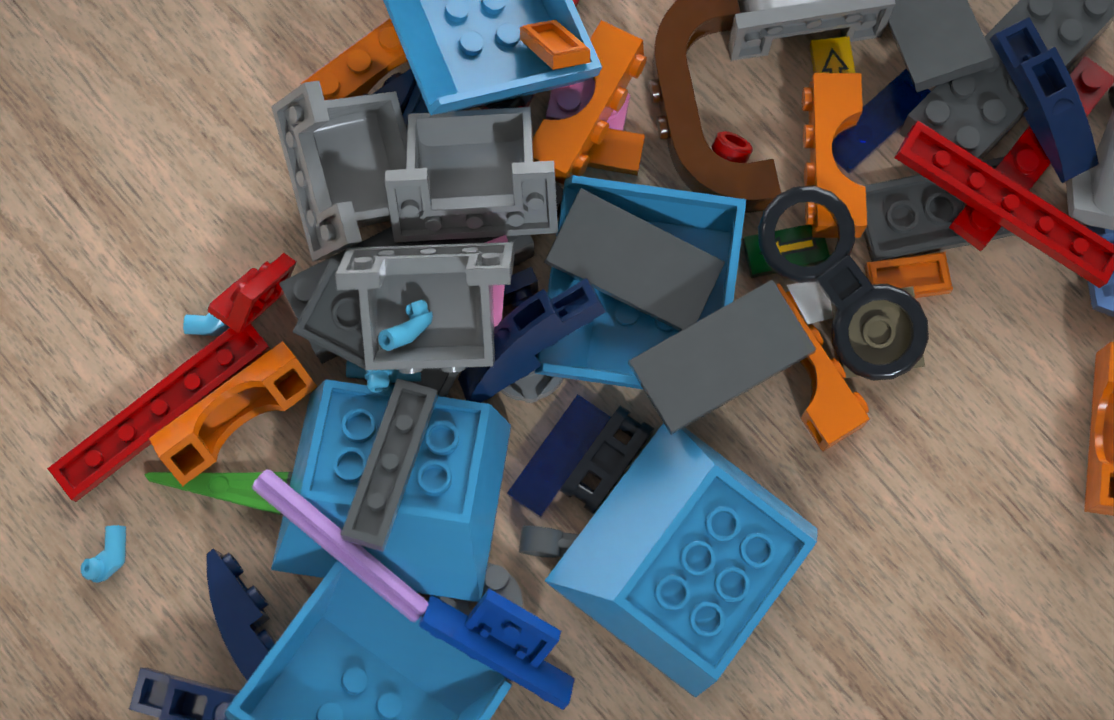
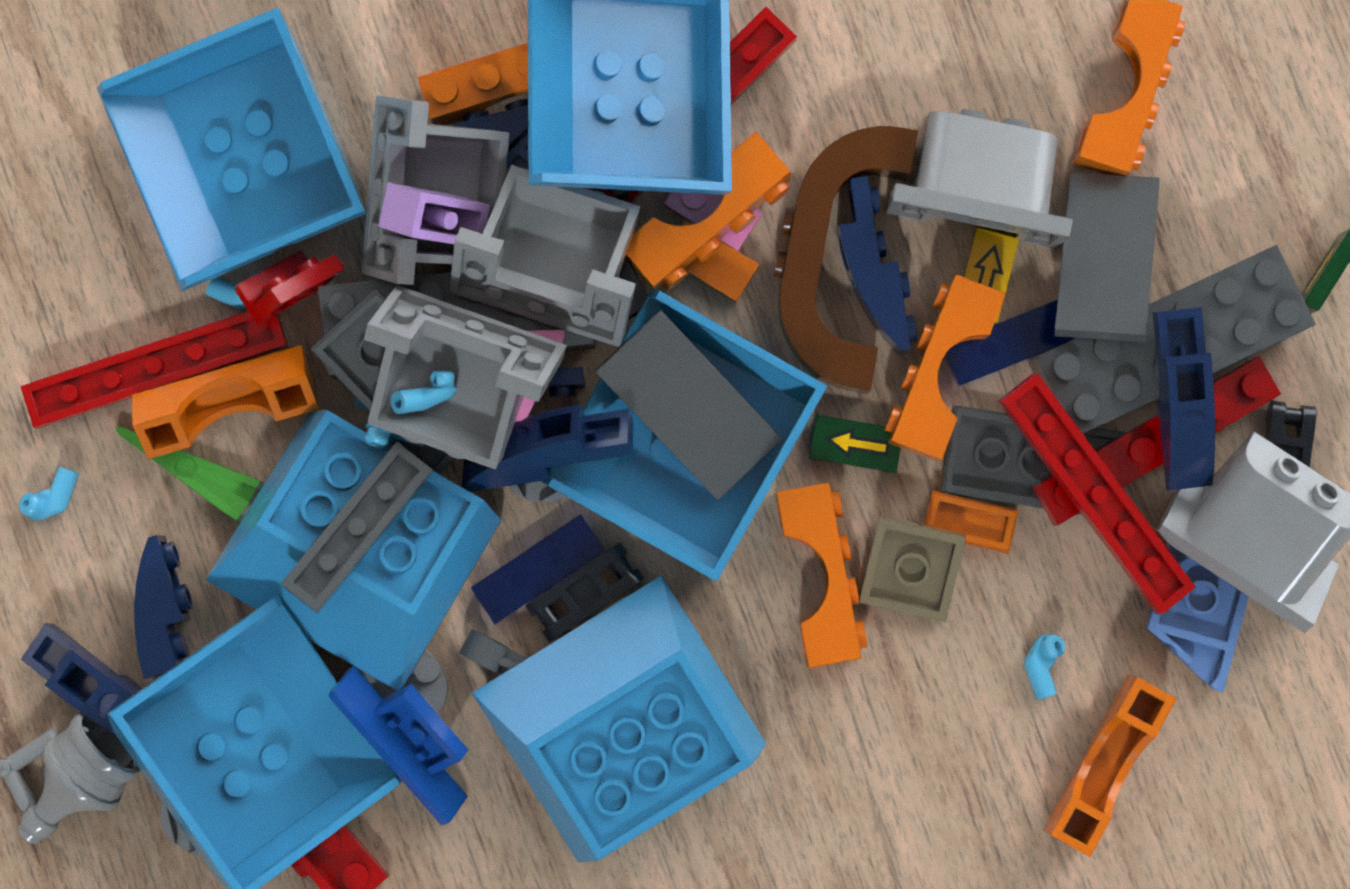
camera: 20 degrees right, 10 degrees up
(162, 198) = (231, 148): none -> dark azure piece
(347, 553) = (271, 574): lavender axle -> none
(351, 178) = (430, 213): none -> lavender brick
(554, 44) = (692, 146): orange tile -> none
(721, 356) = (733, 542): dark grey tile -> none
(732, 147) = (843, 315): red tile -> none
(744, 113) = (876, 284): none -> dark blue slope
(811, 301) = (858, 510): white sticker -> none
(843, 283) = (892, 508): black bar -> none
(1018, 370) = (1040, 661): none -> medium azure arm

